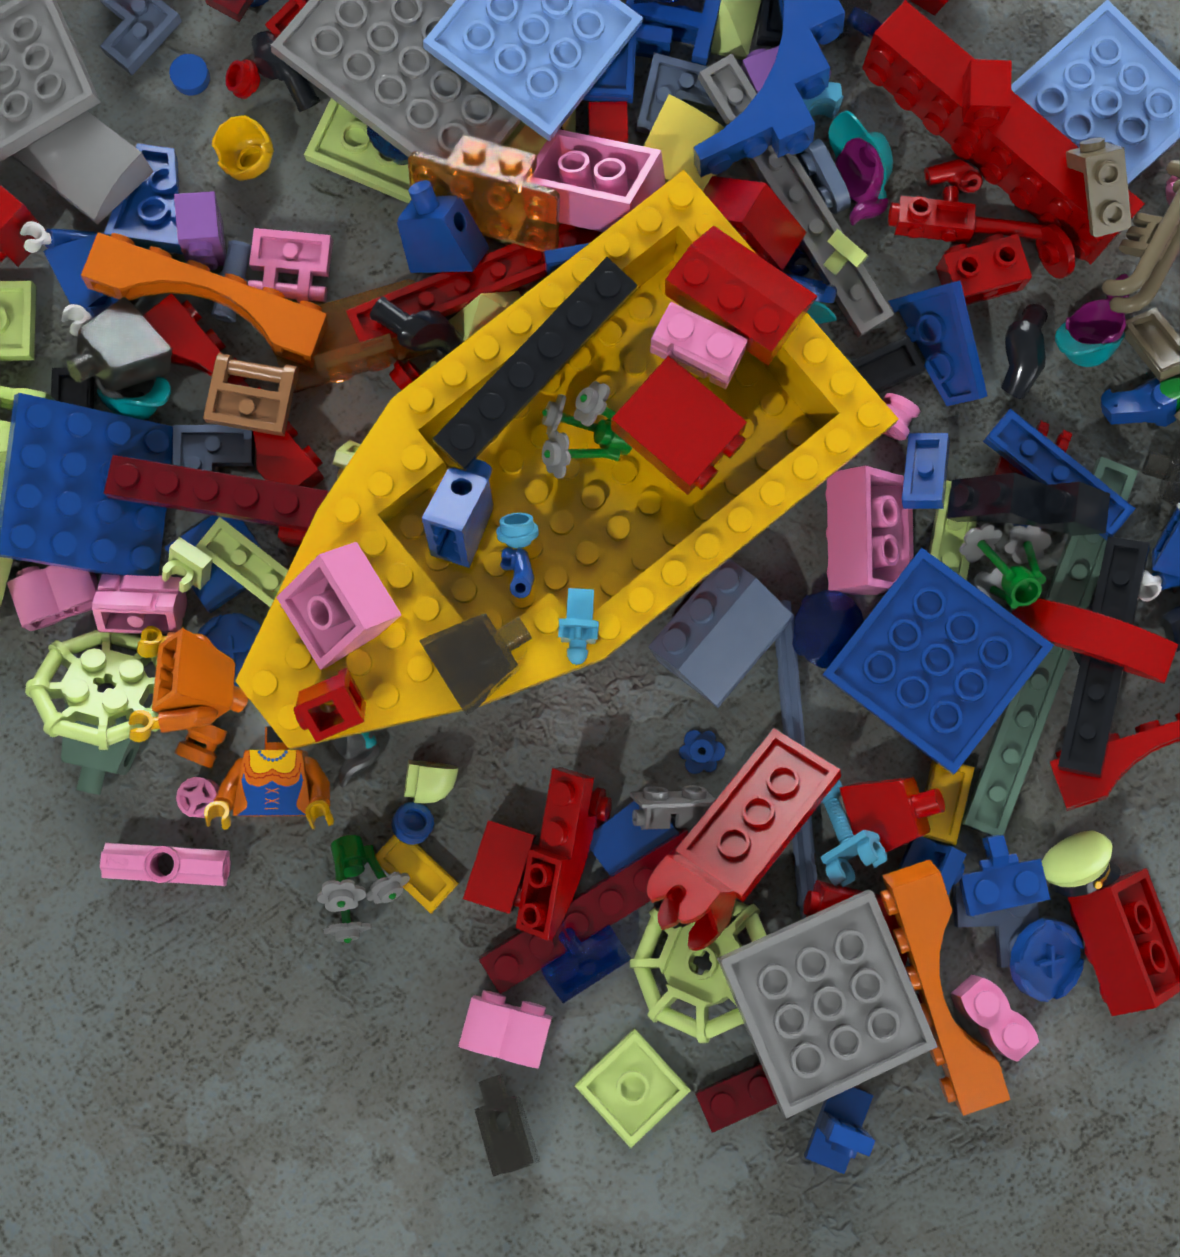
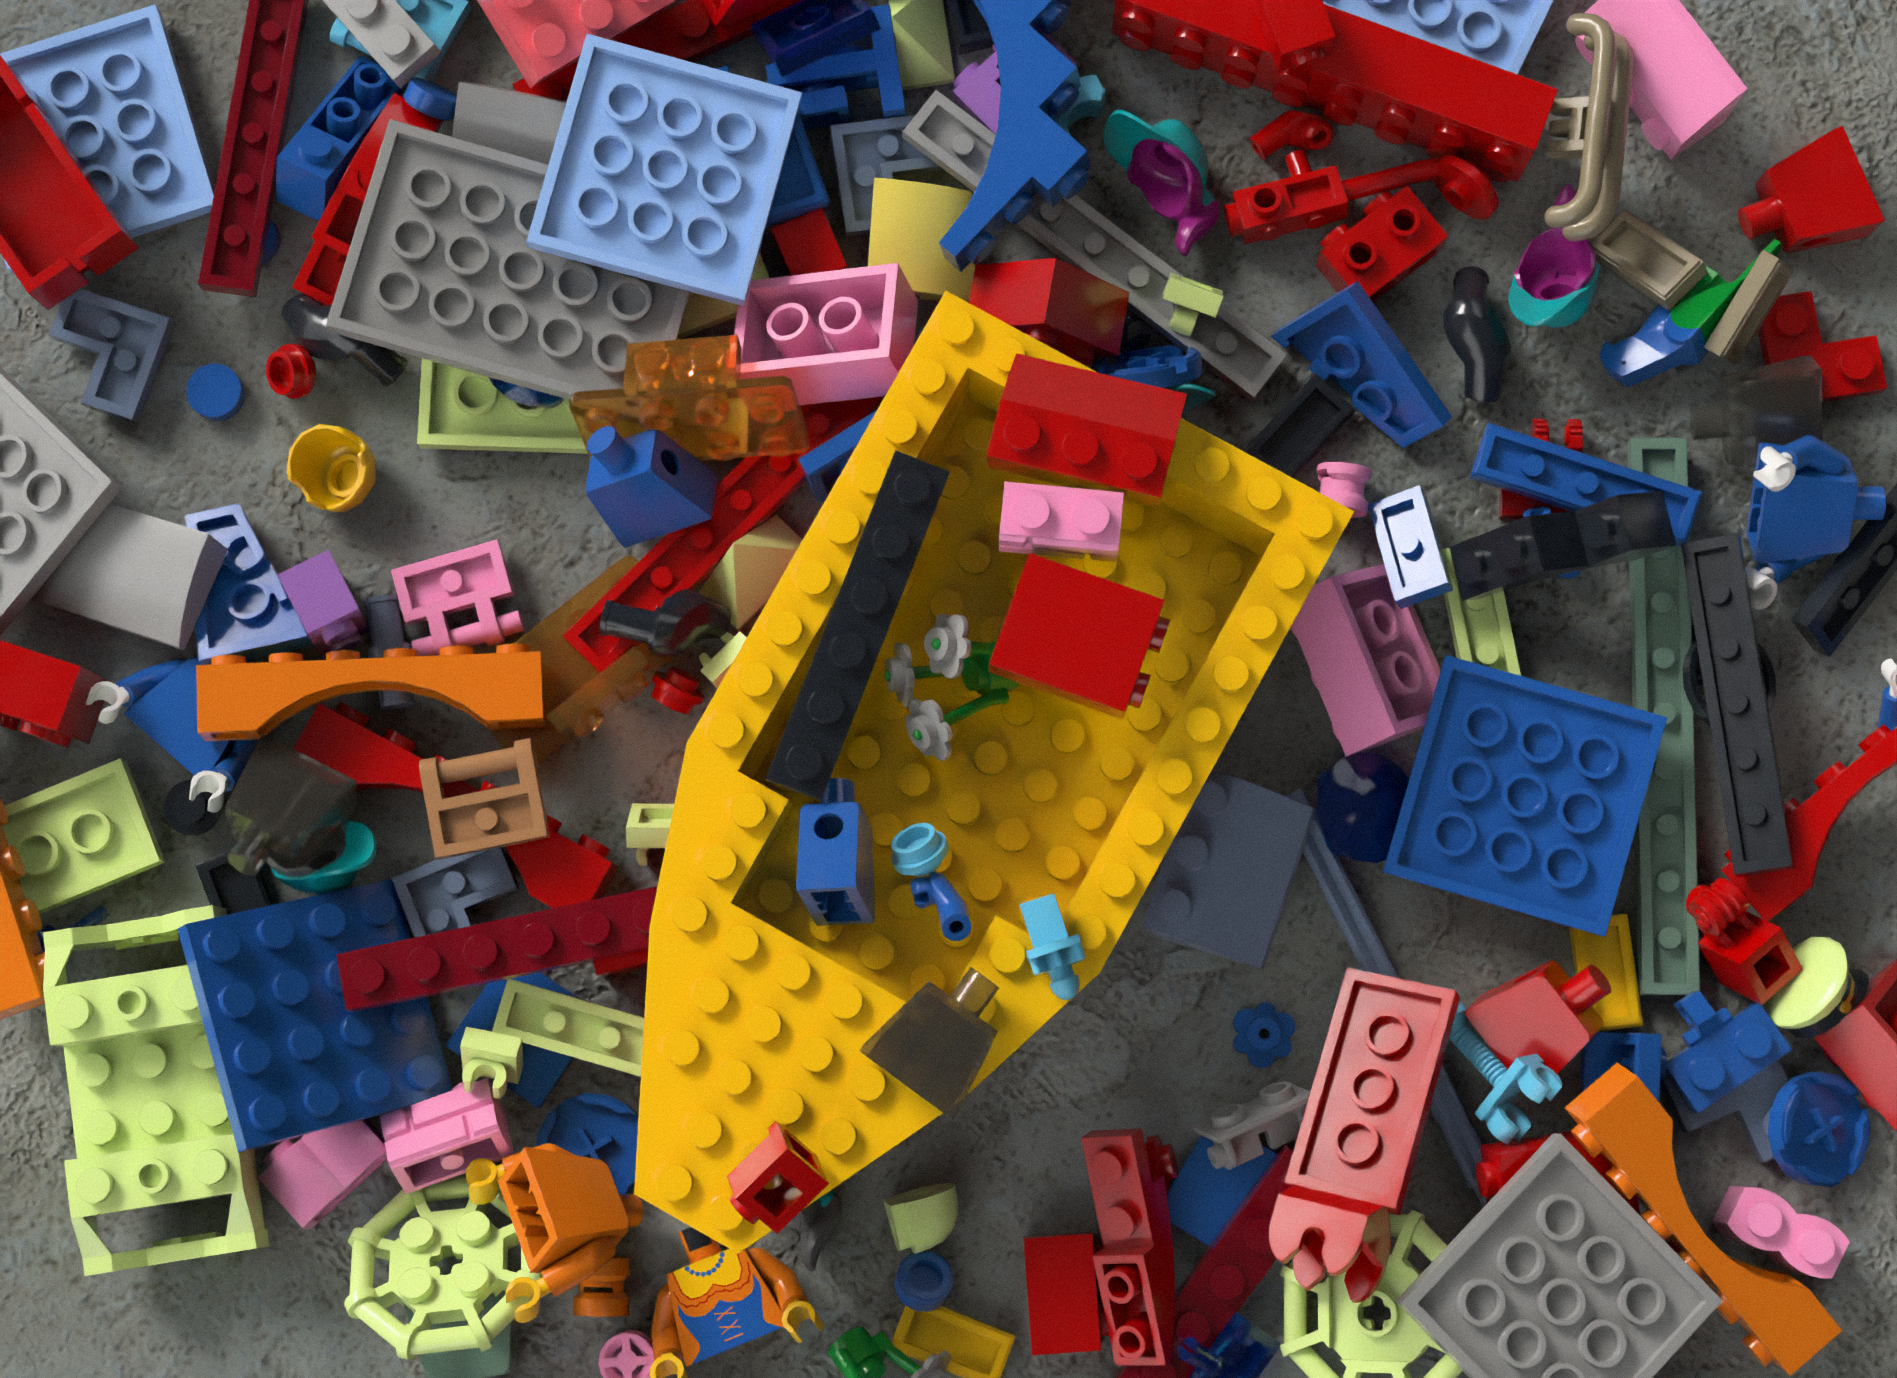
camera: 15 degrees left, 0 degrees up
(59, 335) = (186, 815): none -> black plate
(338, 604) = (732, 1044): bright pink slope -> none
(830, 185) = (1135, 213): sand blue plate -> none
(1003, 583) = (1583, 657): plant -> none
(1041, 817) = (1740, 946): none -> red brick
(1101, 637) = (1718, 683): red slope -> none
(1104, 184) = (1496, 88): dark tan bracket -> none

